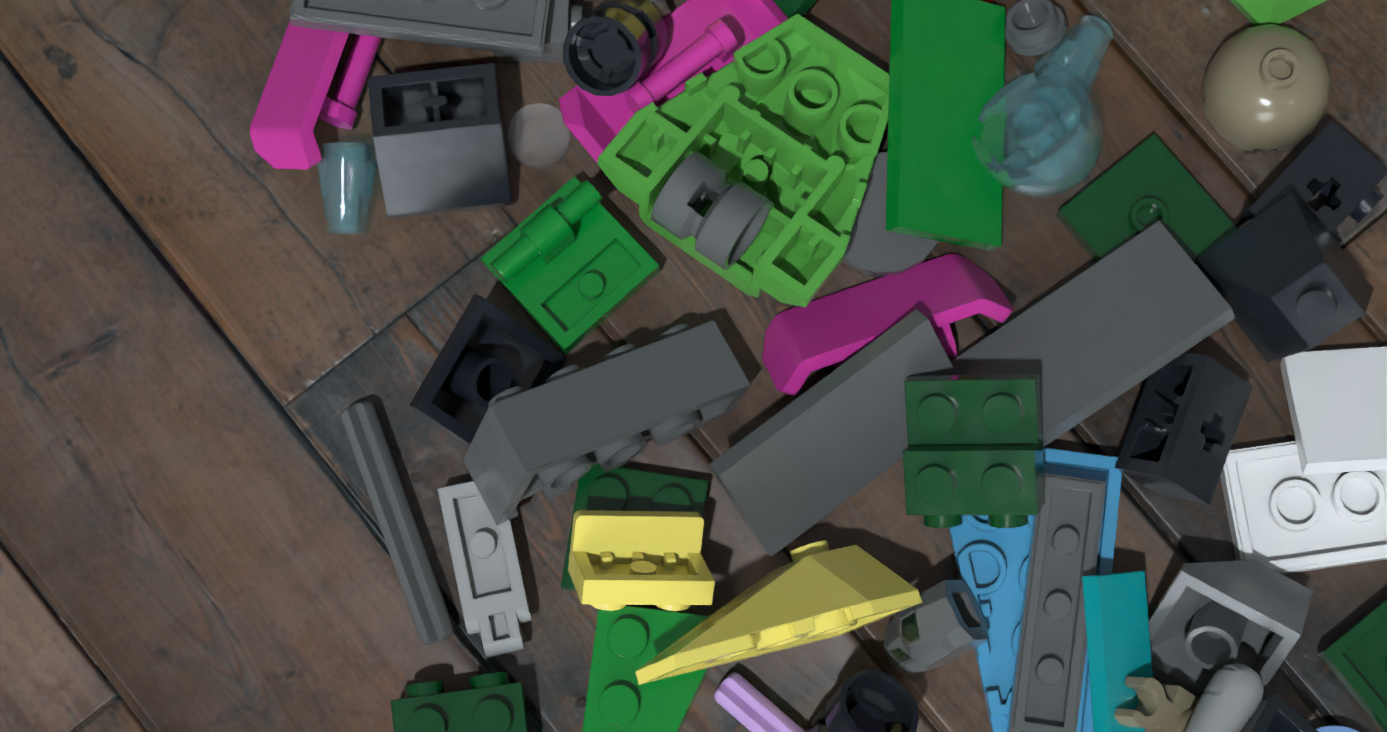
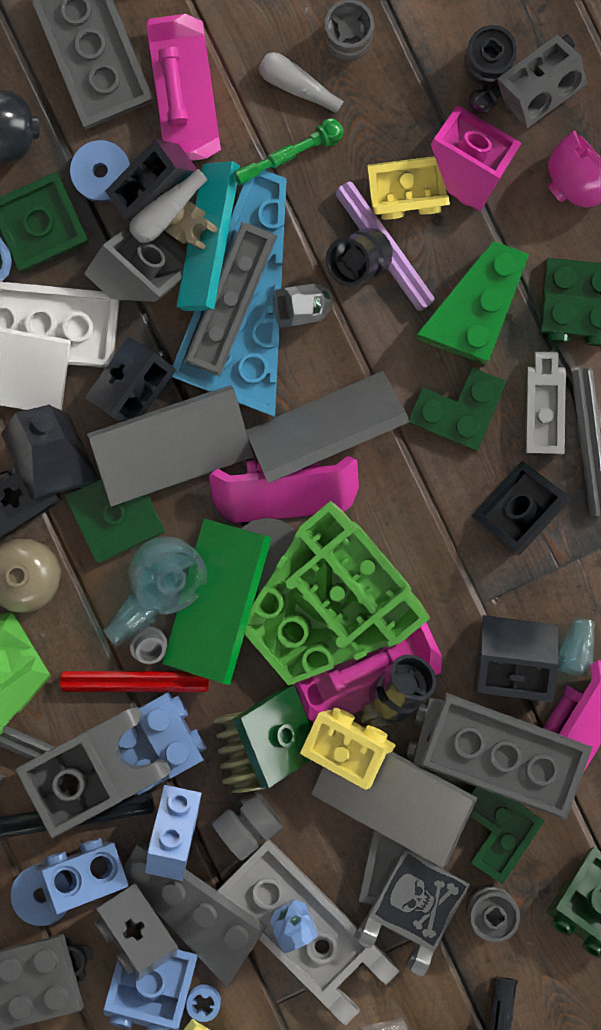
camera: 170 degrees left, 10 degrees up
(539, 136) = (457, 653): clear tile -> none
(570, 264) = (457, 568): green plate -> none
(601, 415) = (460, 469): dark grey wedge -> none
(639, 559) = (460, 379): light yellow bracket -> none
(731, 219) = (362, 561): dark grey wheel -> none
(795, 605) = (386, 331): light yellow wedge -> none
(974, 449) = (256, 394): dark green plate -> none

